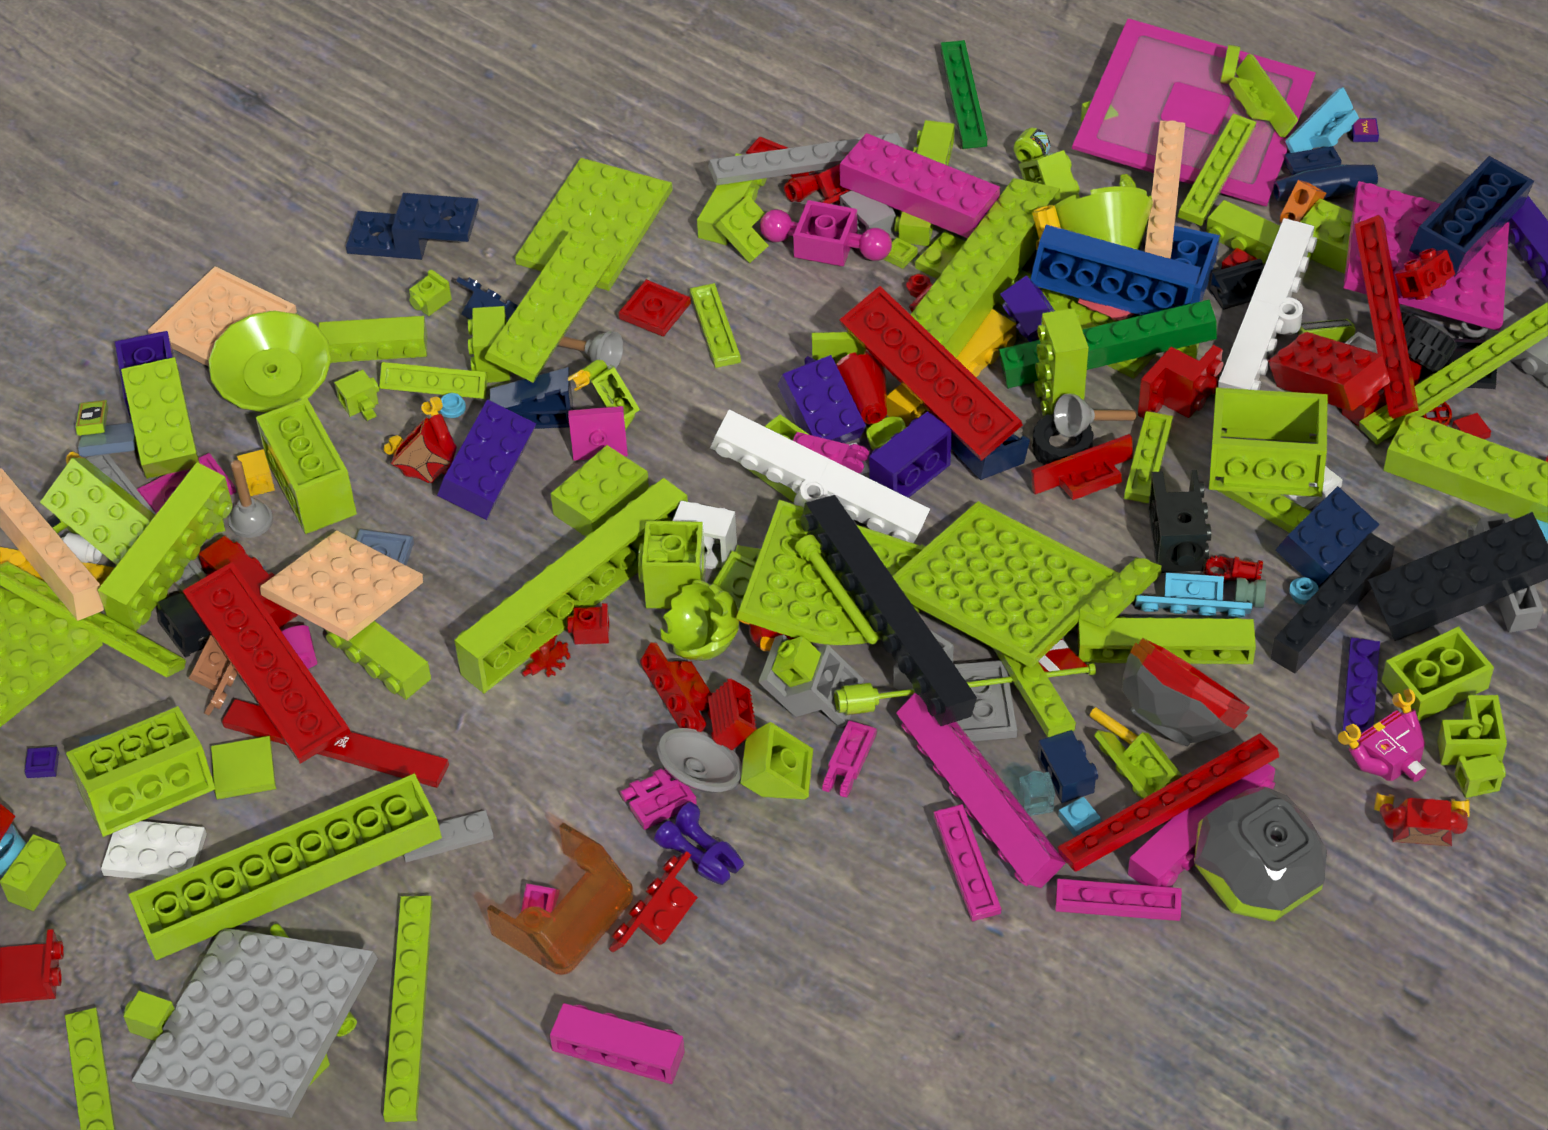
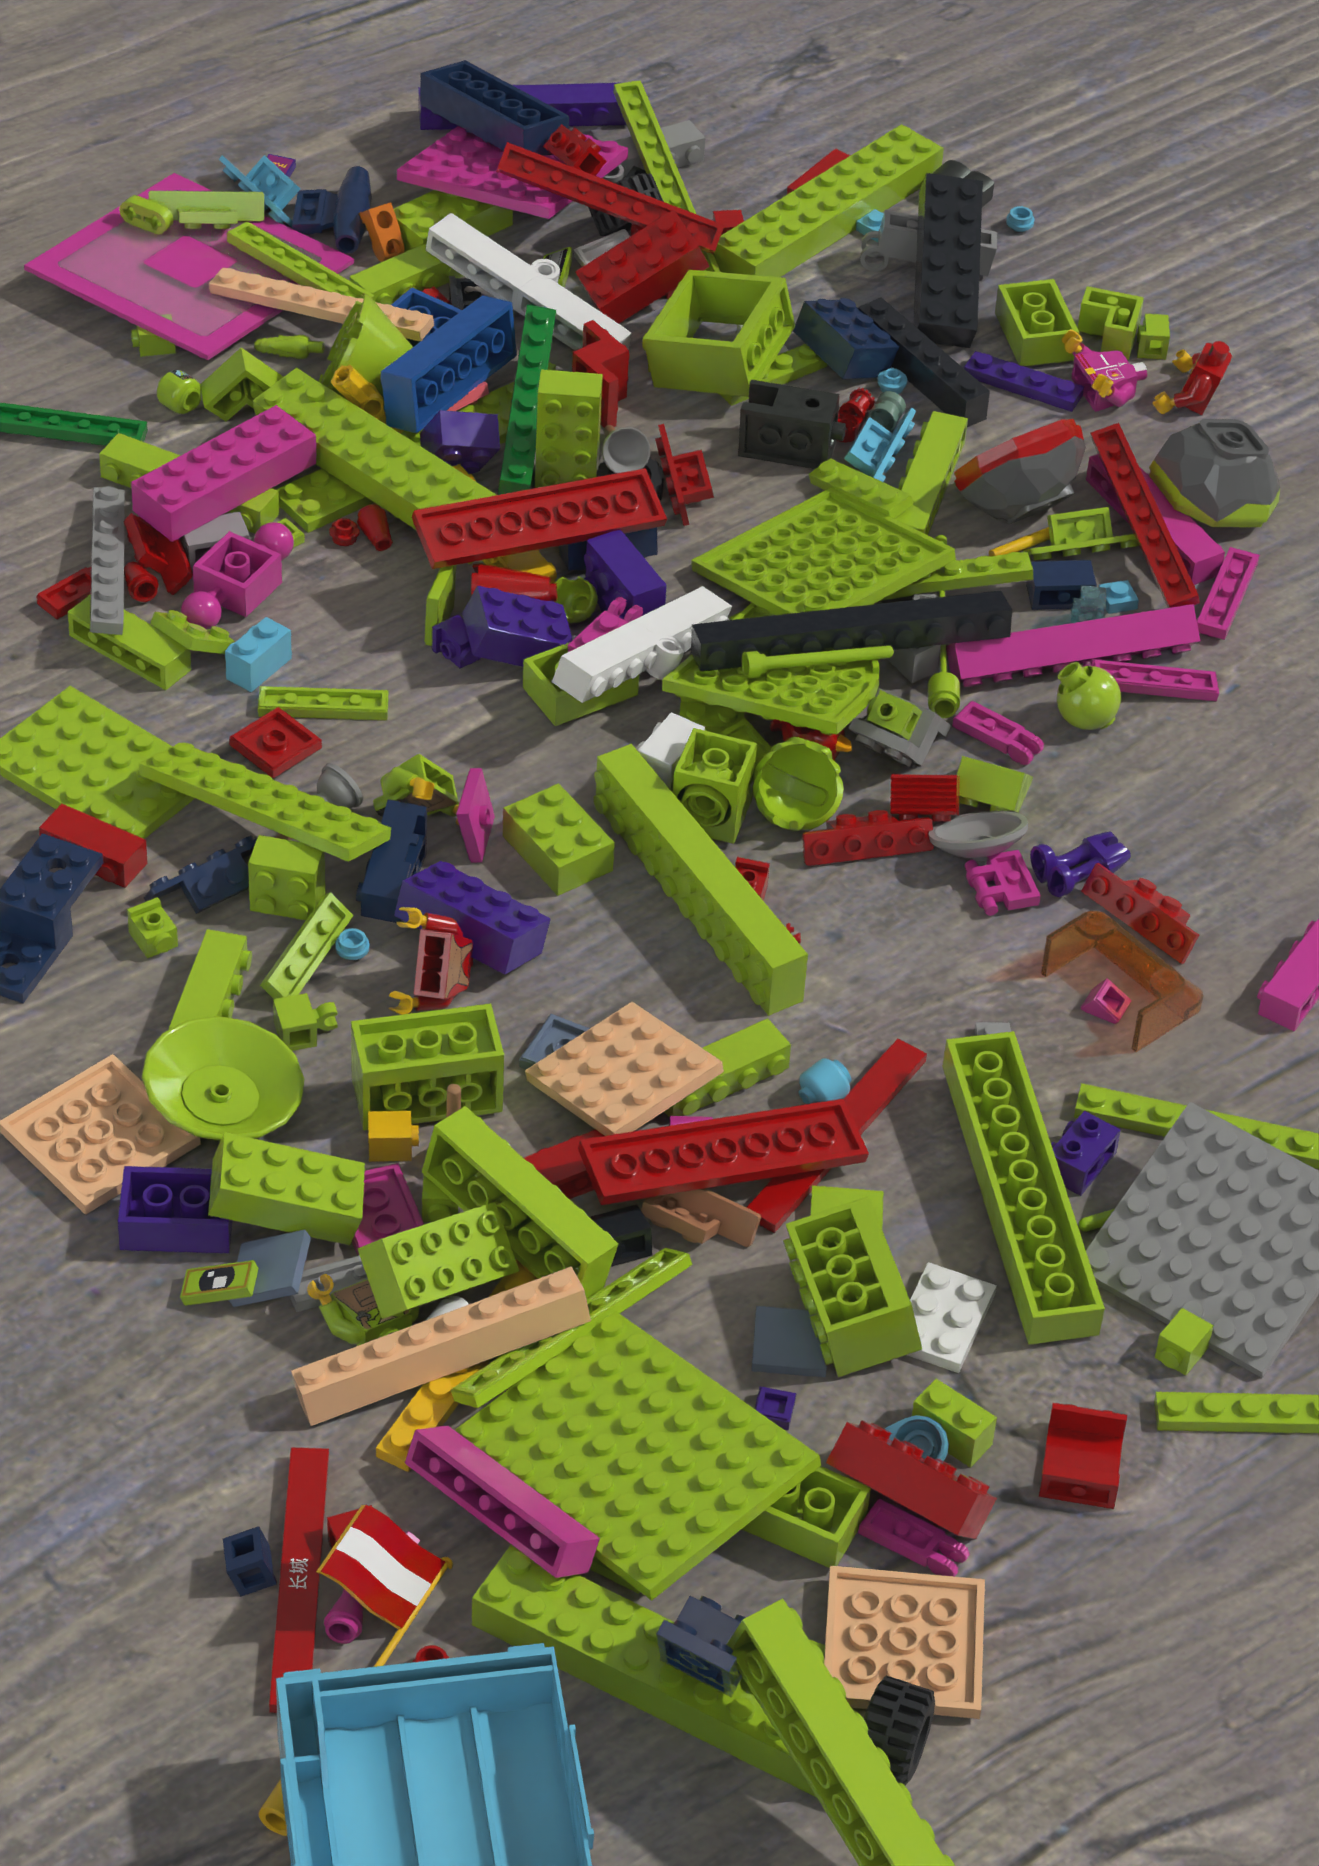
camera: 80 degrees left, 5 degrees down
(346, 908) = (1085, 1150): none -> dark purple brick
(378, 719) = (824, 1082): none -> medium azure head
(503, 239) = (122, 852): none -> red brick
(743, 270) = (258, 654): none -> medium azure brick
(903, 806) = (1088, 696): none -> lime brick
(1148, 455) = (680, 431): lime plate -> none

